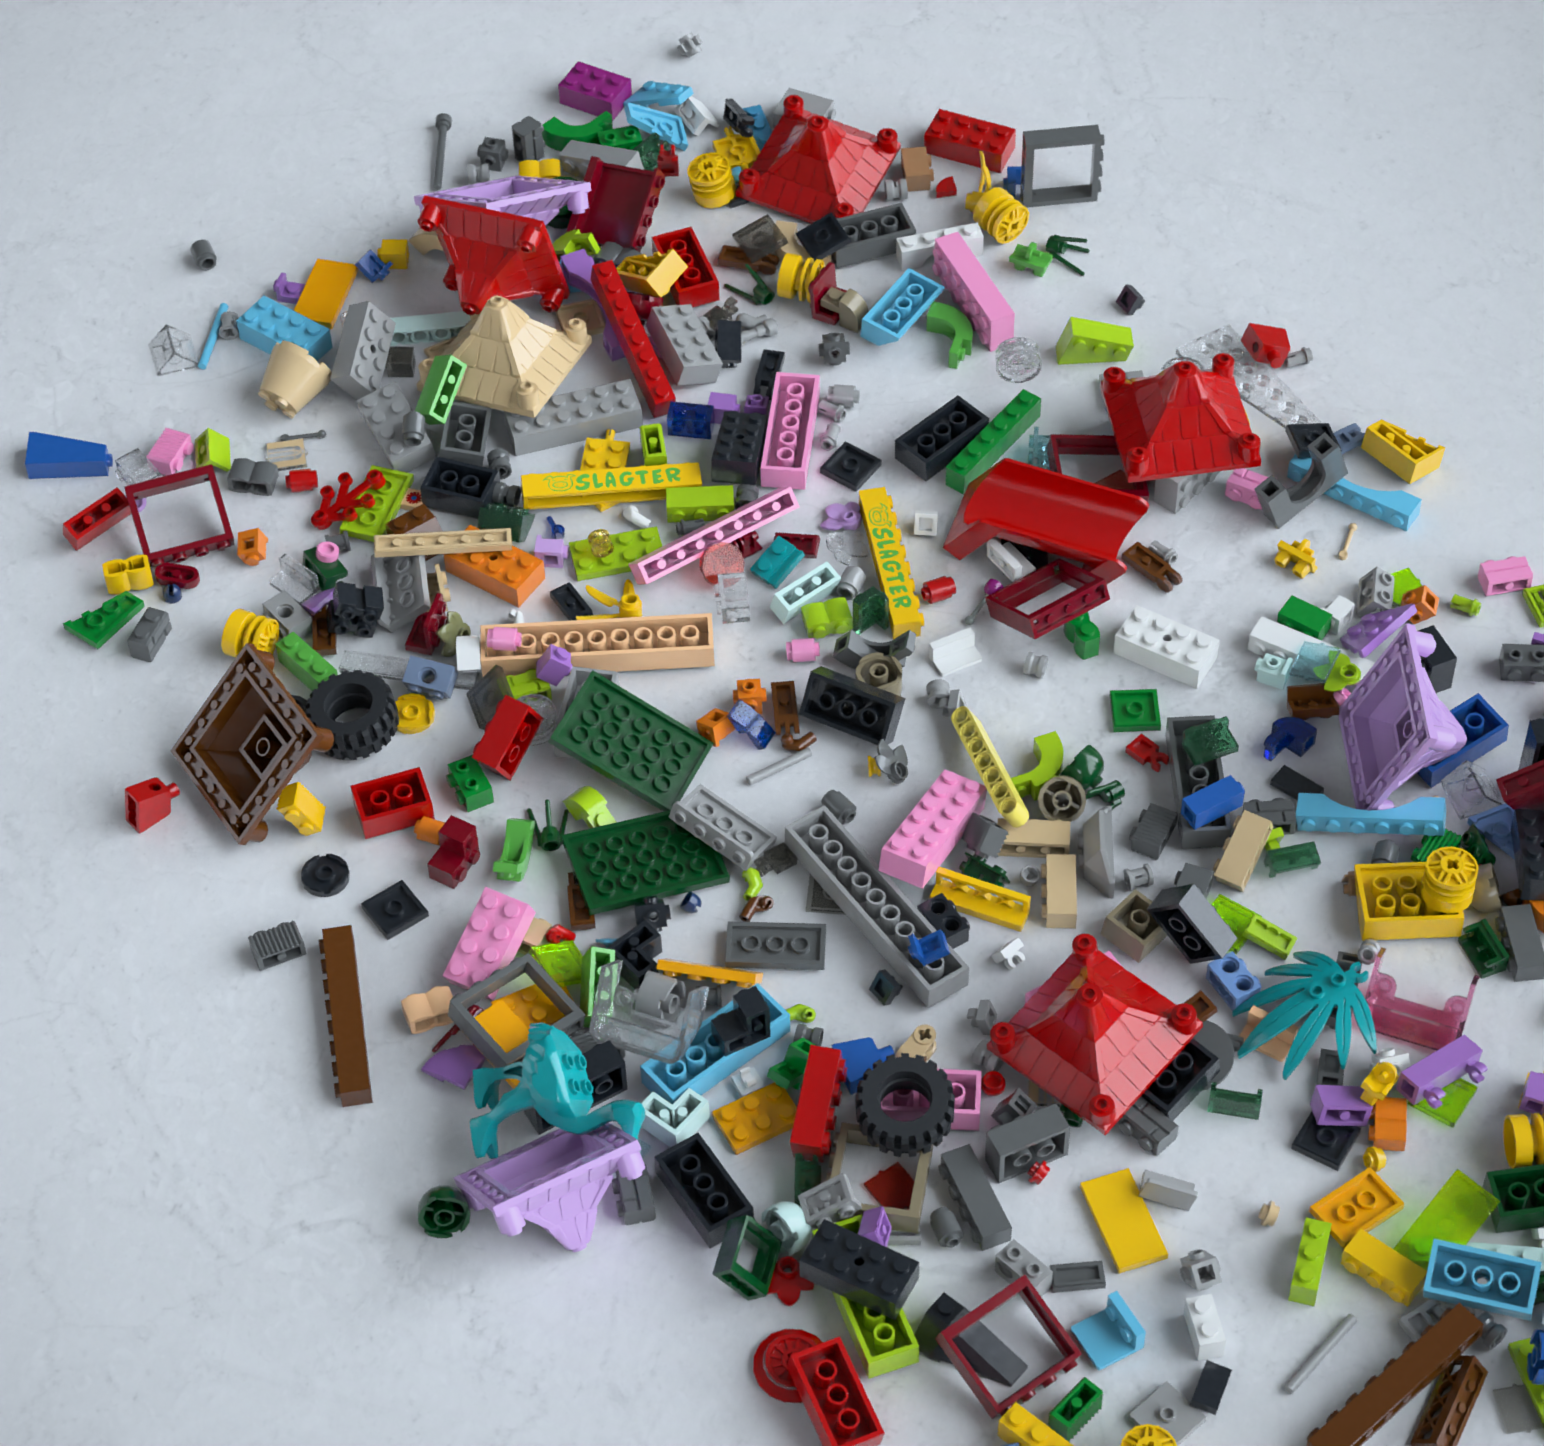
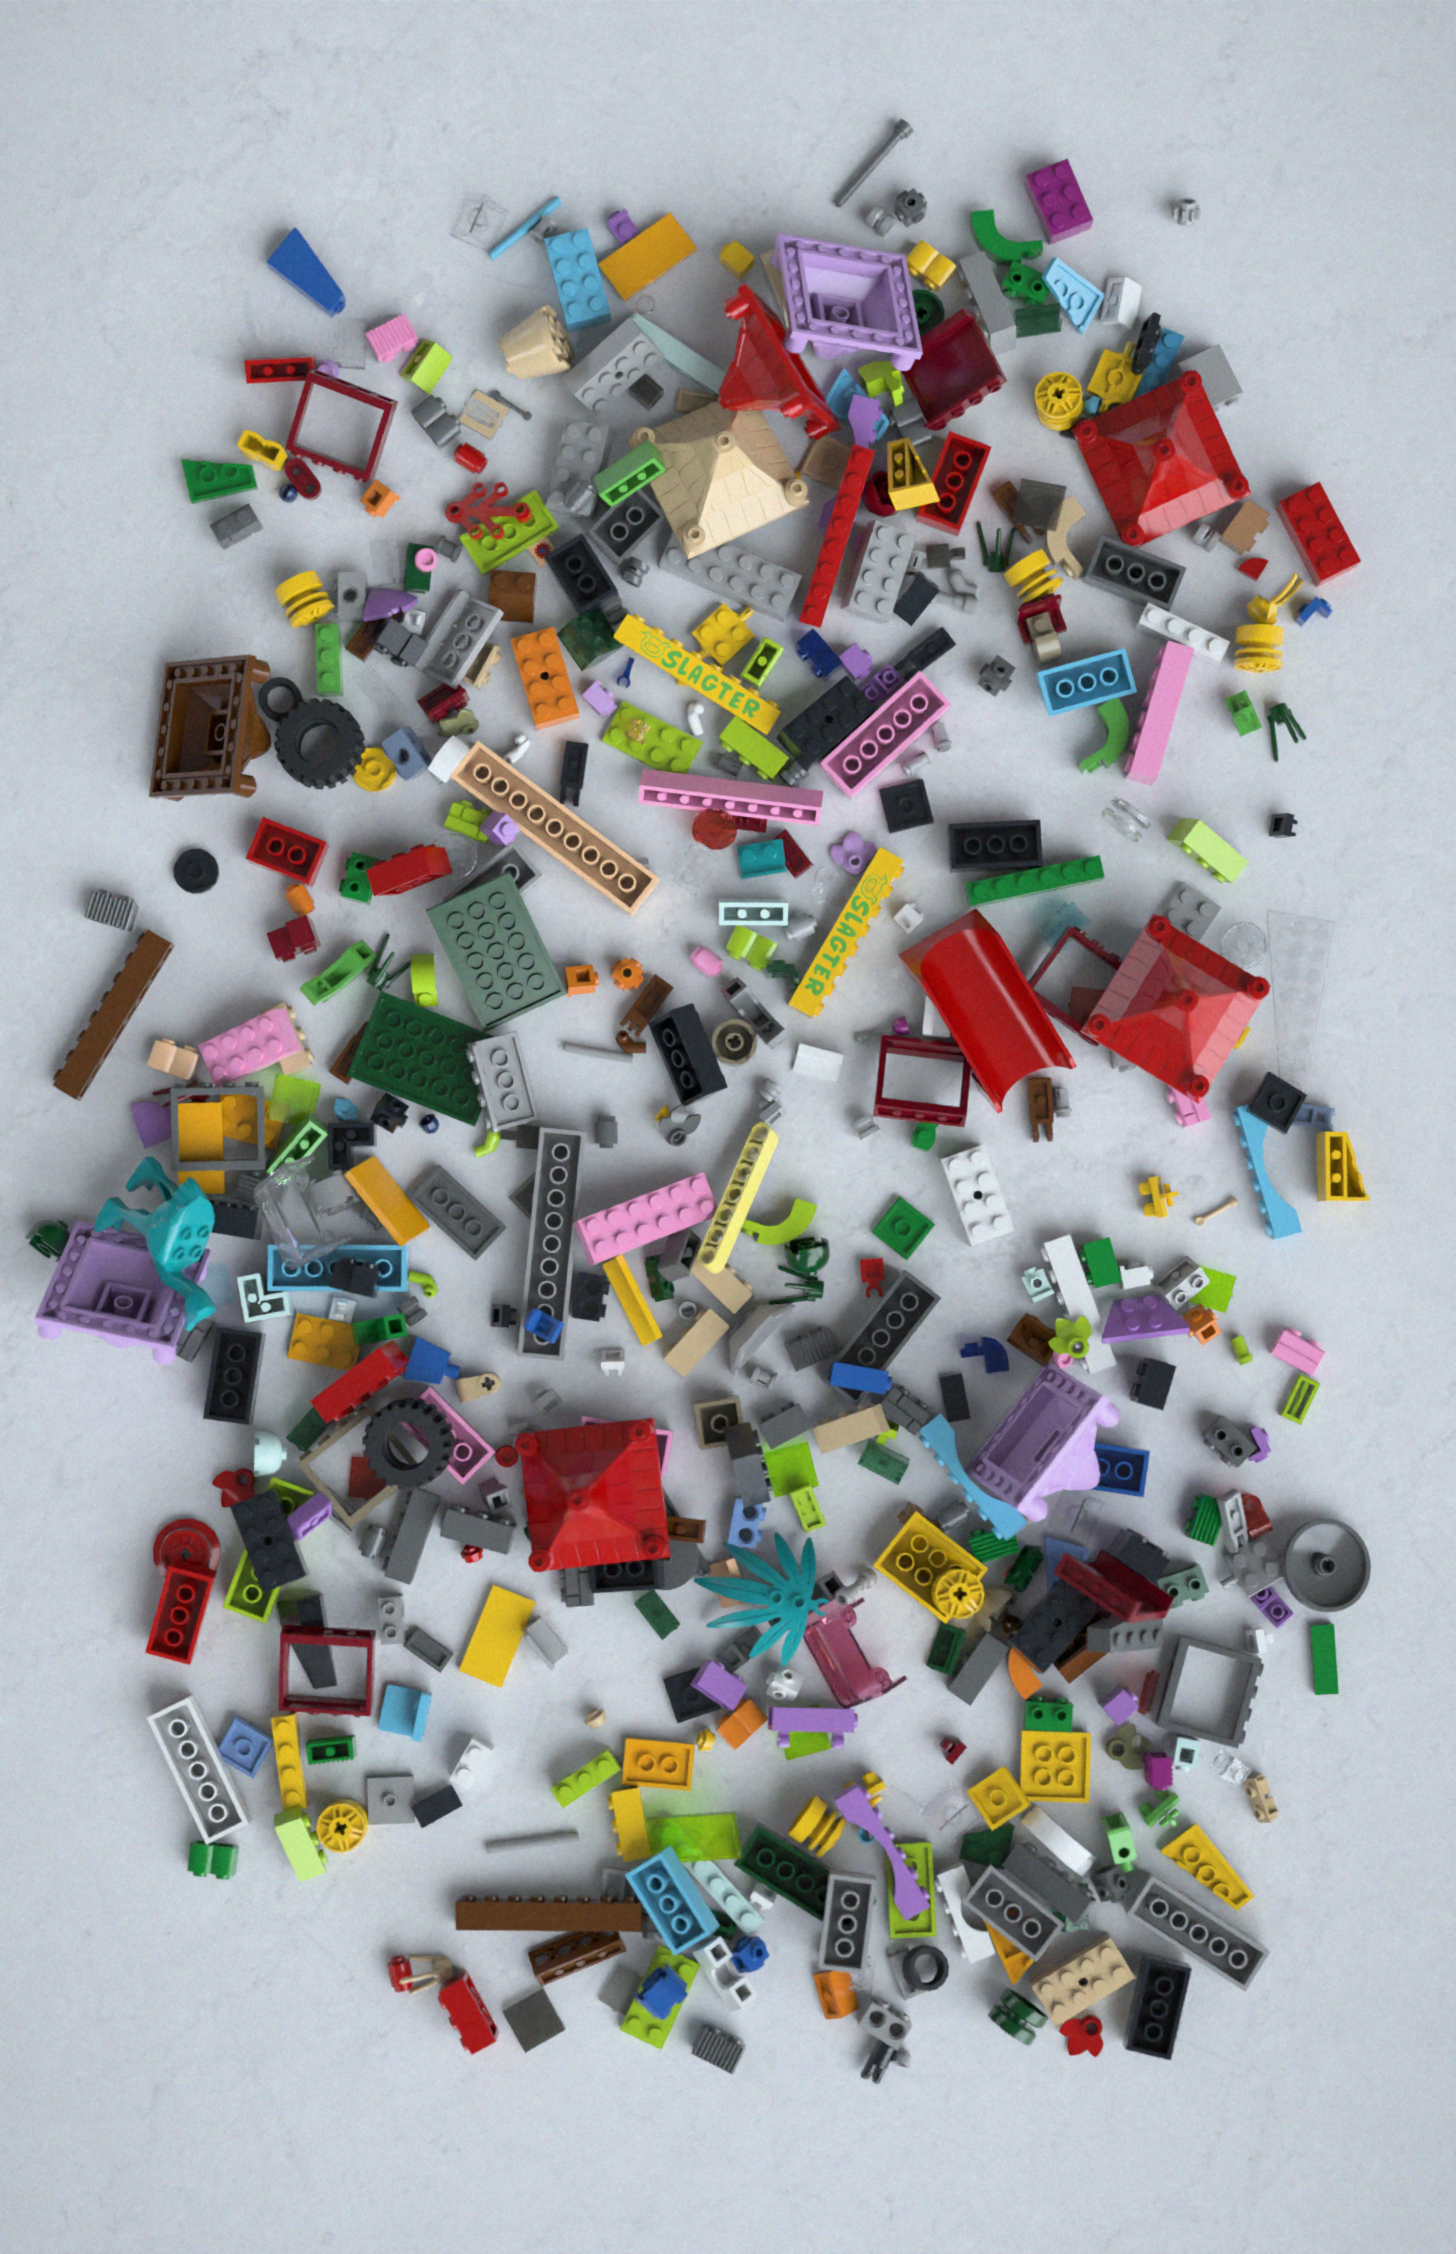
camera: 40 degrees right, 35 degrees up
(148, 803) = (107, 696): red torso -> none
(203, 254) = (583, 127): dark grey brick -> none
(301, 809) = (217, 808): yellow brick -> none
(373, 267) = (708, 261): blue bracket -> none
(395, 909) = (221, 946): black tile -> none
(442, 542) = (511, 634): tan tile -> none
(487, 694) = (436, 811): clear smoke tile -> none
(504, 638) = (478, 775): bright pink brick -> none
(528, 139) = (948, 221): dark grey brick -> none
(558, 933) = (305, 1074): red arm -> none
(629, 605) = (607, 808): yellow plant -> none
(660, 93) = (1106, 253): medium azure wing -> none
(668, 162) = (1044, 344): red plate -> none
(747, 1284) = (223, 1467): dark green window -> none
(748, 721) = (604, 1004): clear blue slope -> none
(755, 905) = (474, 1164): reddish brown arm -> none
(823, 237) = (1085, 553): black tile -> none
(829, 1201) = (297, 1467): light grey bracket -> none
(843, 395) = (961, 730): light grey brick -> none
(938, 589) = (858, 992): red brick -> none
(1060, 138) = (1348, 647): dark grey window -> none
(1062, 799) = (766, 1269): dark tan cylinder -> none
(1200, 1269) = (506, 1722): light grey brick -> none
(1209, 741) = (907, 1325): clear green bracket -> none
(1266, 344) = (1339, 974): red torso -> none
(1298, 357) = (1359, 1002): light grey pin -> none
(1314, 661) = (1064, 1313): clear light blue piece -> none
(1325, 471) = (1239, 1146): dark grey arch -> none
(1379, 1082) = (753, 1699): yellow hips -> none

